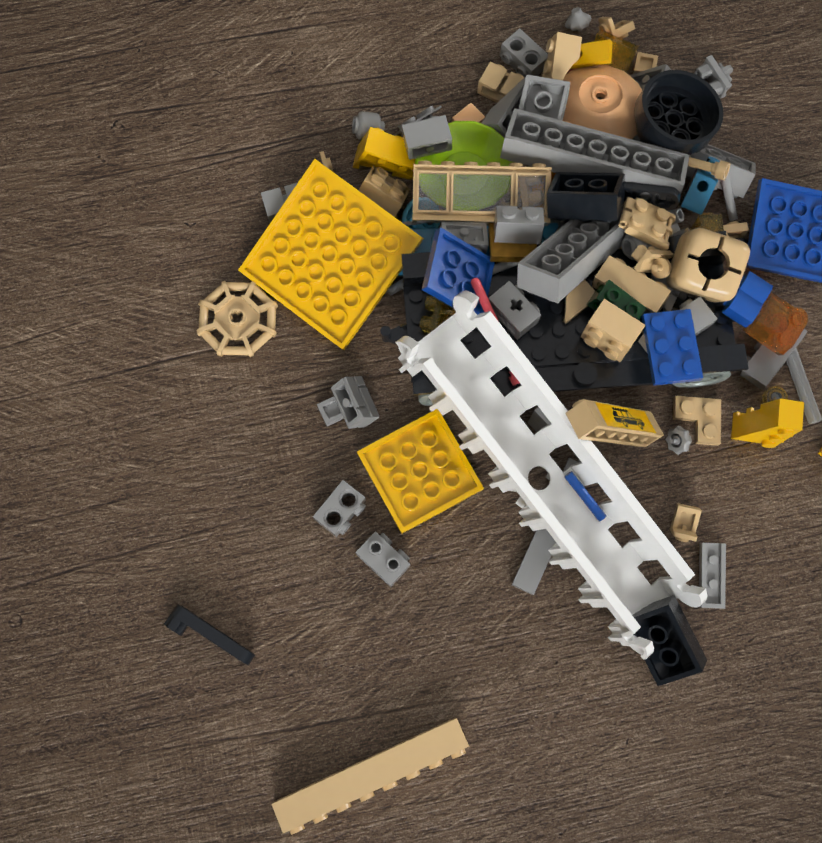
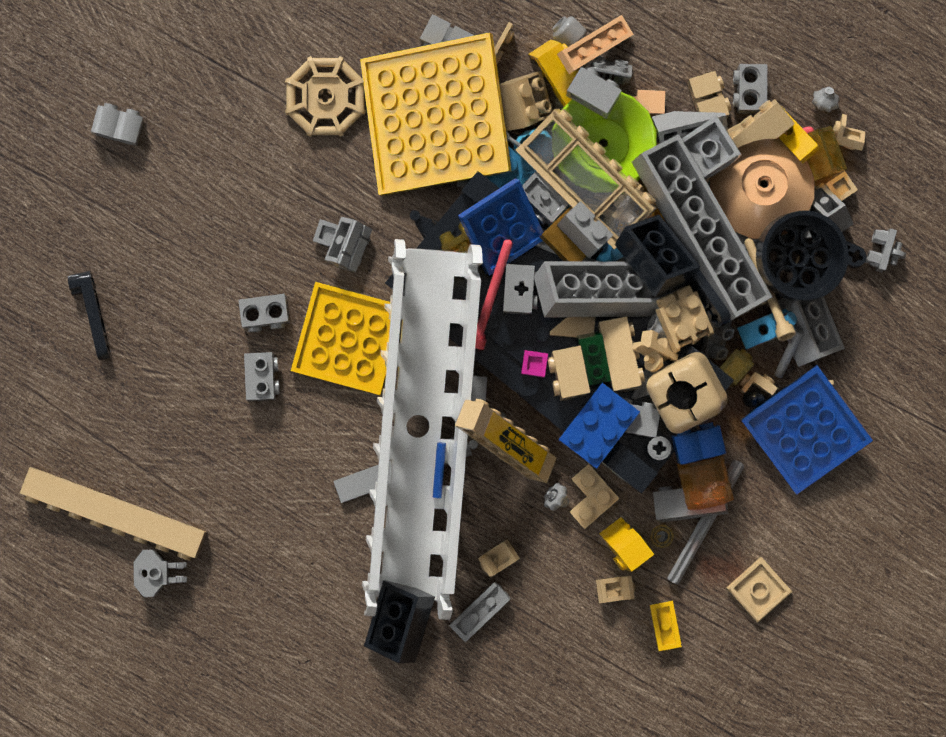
camera: 45 degrees right, 10 degrees up
(99, 476) = (117, 124): none -> light grey brick
(393, 112) = (595, 44): none -> light nougat plate
(452, 787) = (157, 573): none -> light grey hinge
(576, 352) = (534, 363): none -> dark pink tile
(724, 320) = (664, 443): none -> light grey bush
(787, 463) = (615, 589): none -> tan bracket

